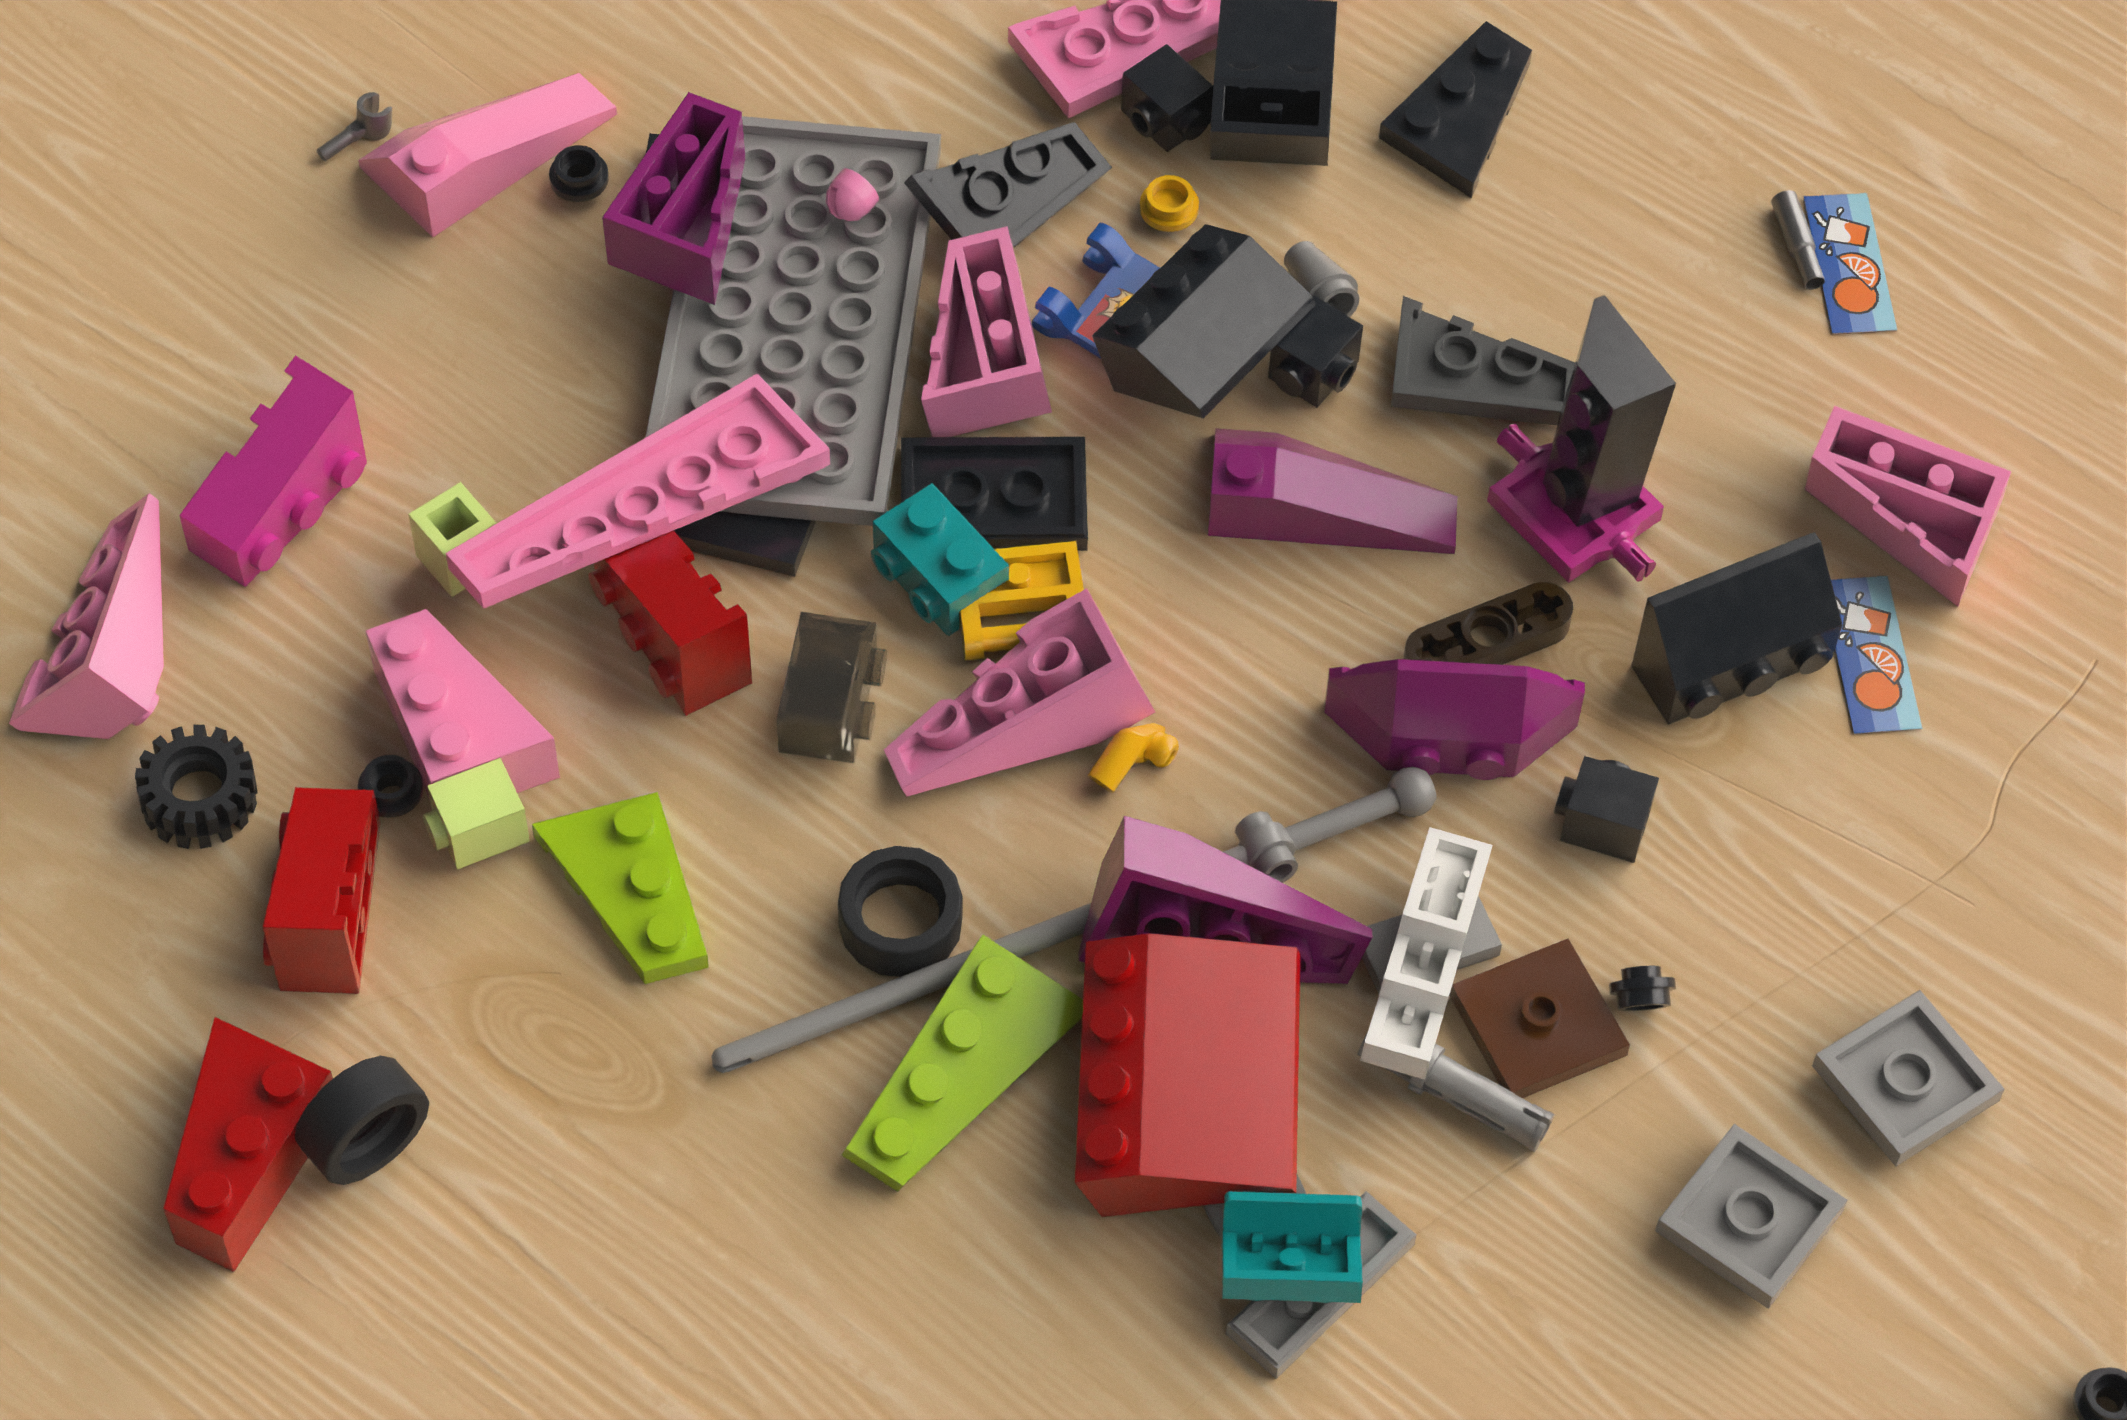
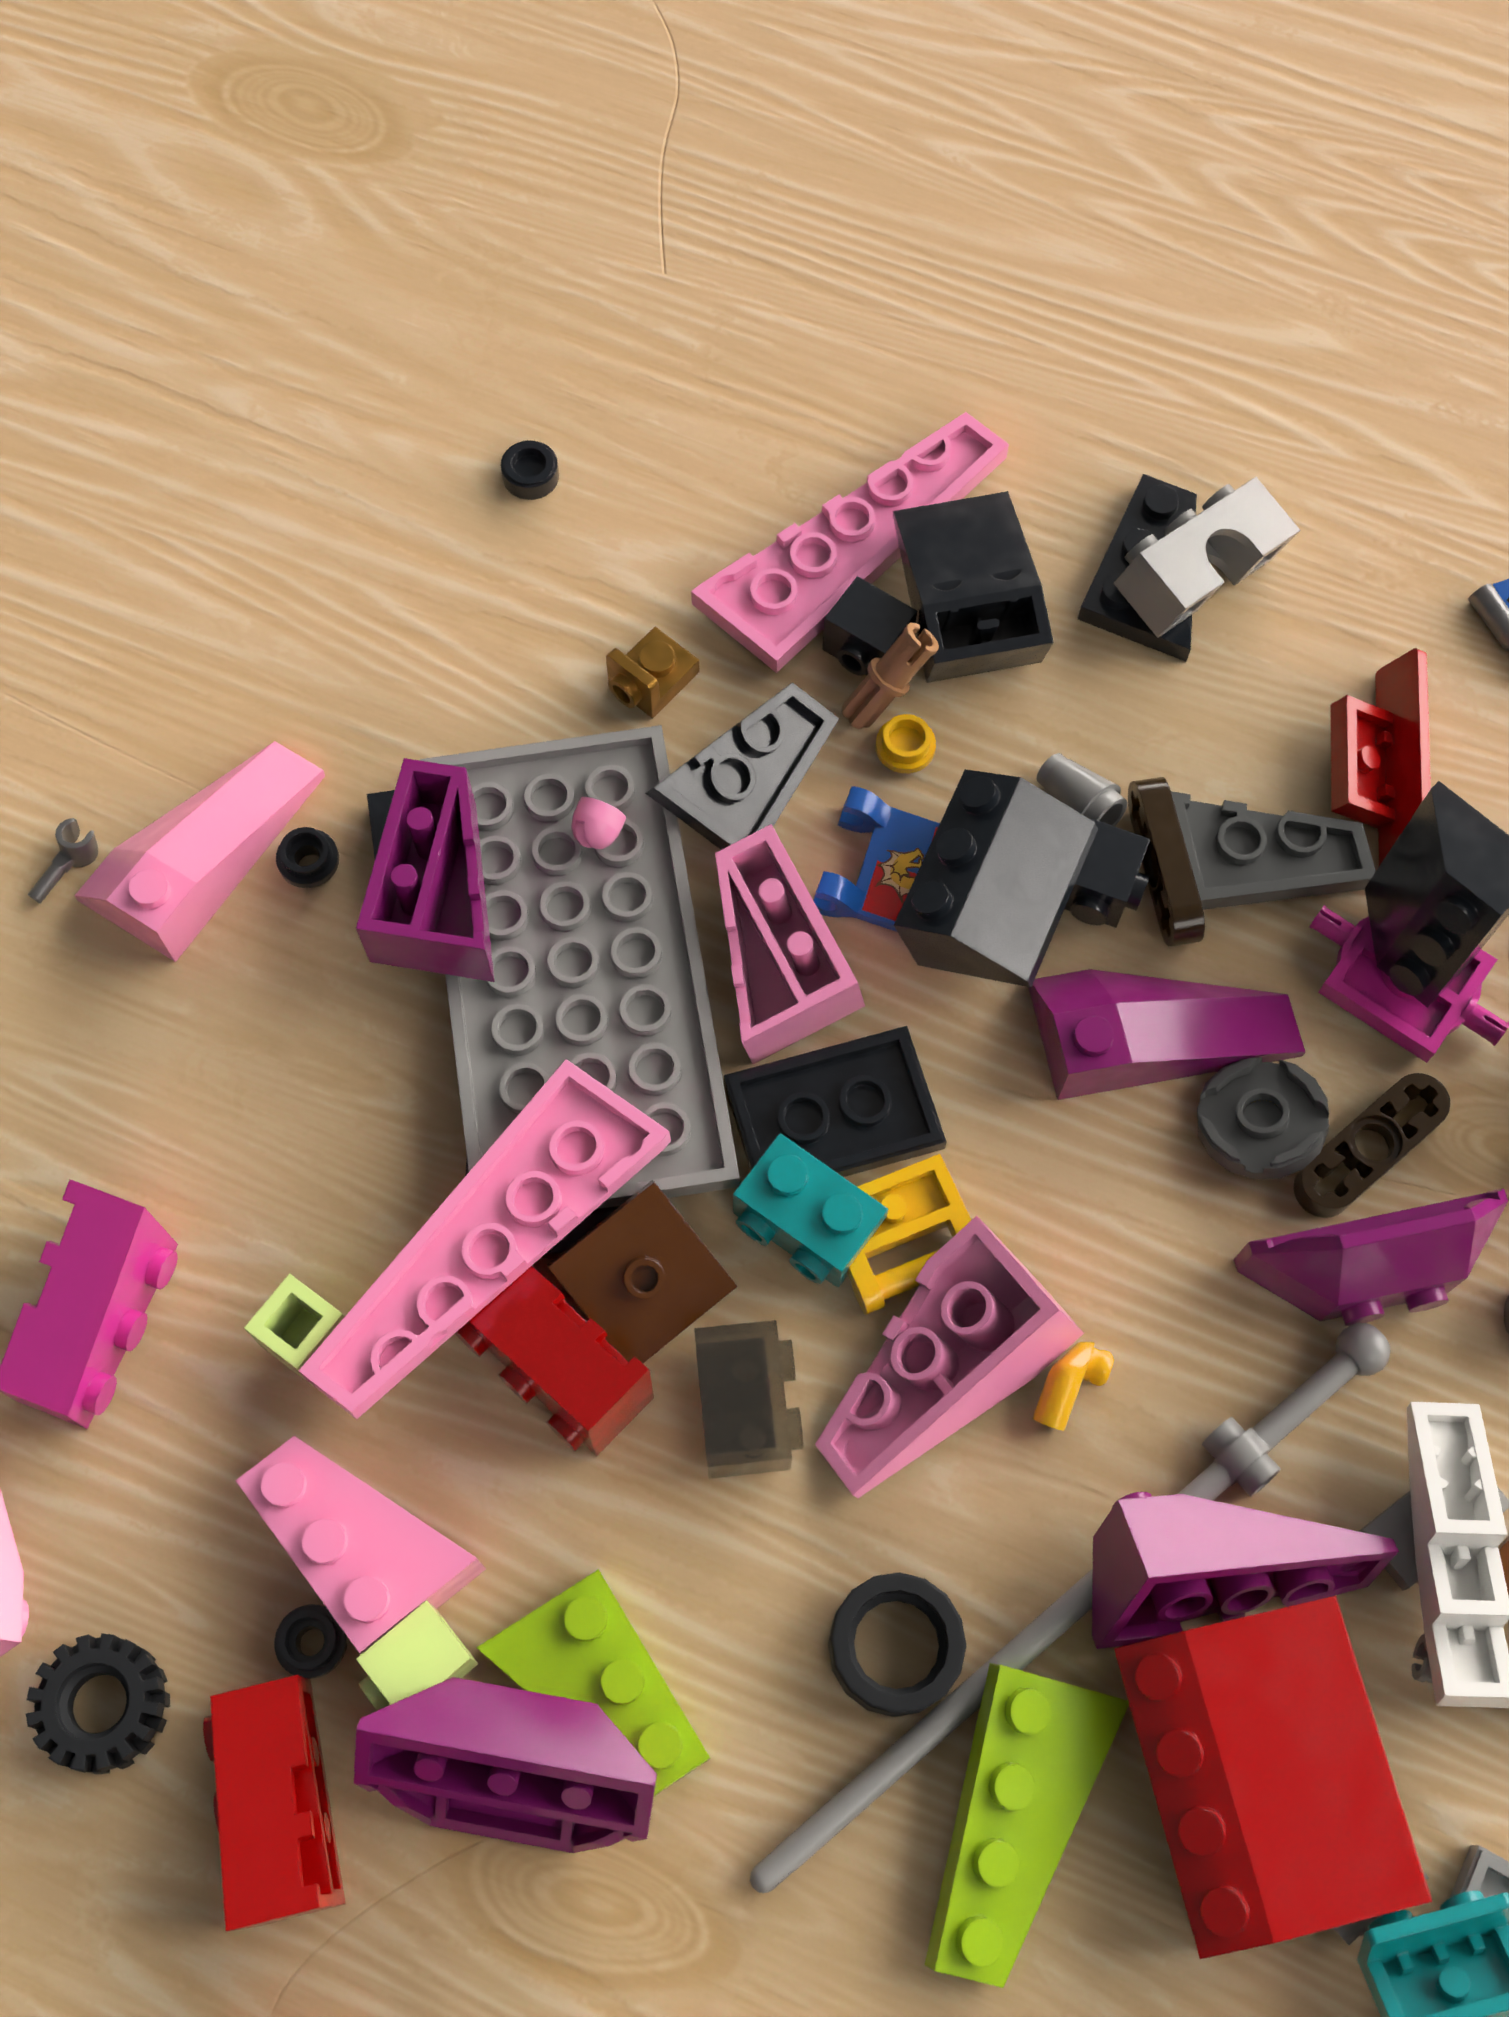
camera: 15 degrees left, 10 degrees up
(524, 904) = (507, 1766): none -> magenta wedge
(773, 566) = (642, 1274): none -> reddish brown plate
(948, 91) = (650, 672): none -> pearl gold bracket
(1166, 137) = (889, 676): none -> medium nougat axle
(1379, 356) = (1166, 862): none -> dark brown beam
(1390, 586) = (1263, 1118): none -> dark grey tile
(1551, 85) = (1174, 574): none -> arch
(1640, 299) = (1383, 750): none -> red bracket

